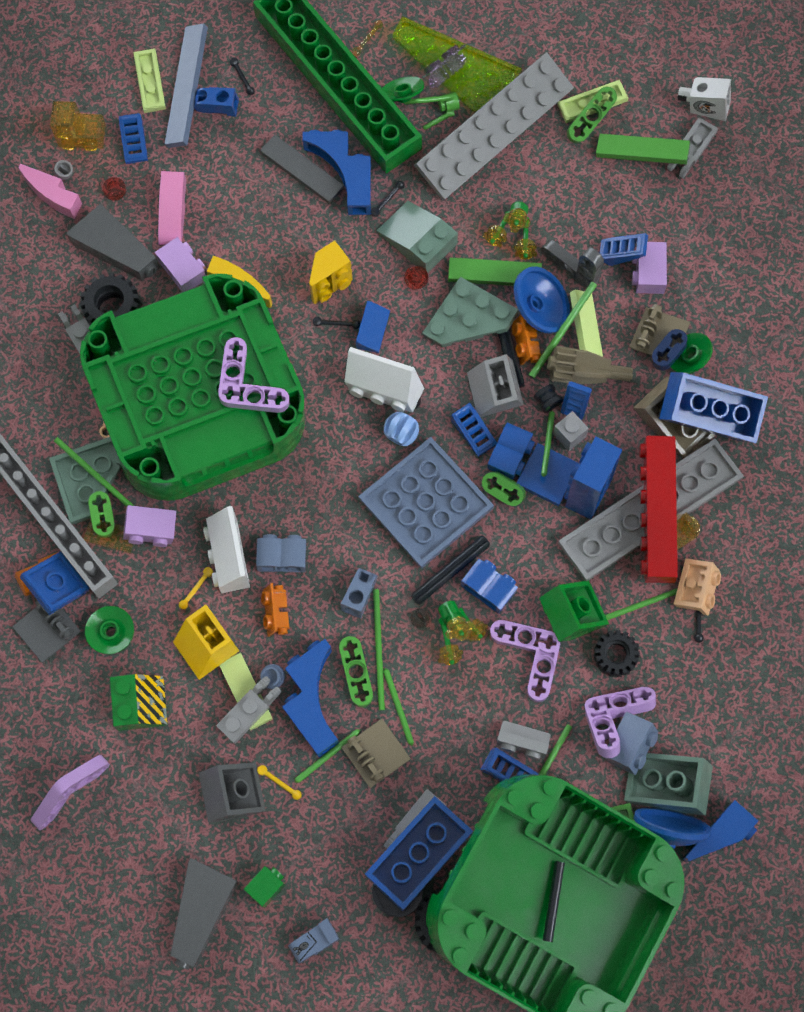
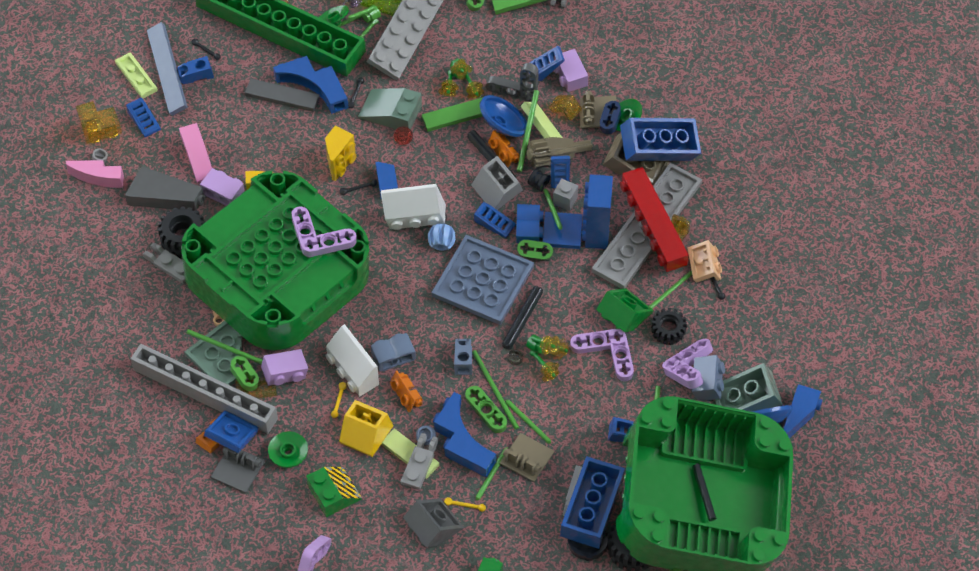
camera: 25 degrees left, 15 degrees down
(114, 188) = (144, 156): clear red tile -> none
(469, 315) = (454, 146): sand green plate -> none
(489, 585) = (556, 316): blue brick -> none
(523, 739) = (628, 406): light grey bracket -> none
(624, 312) = (567, 105): none -> clear yellow bracket

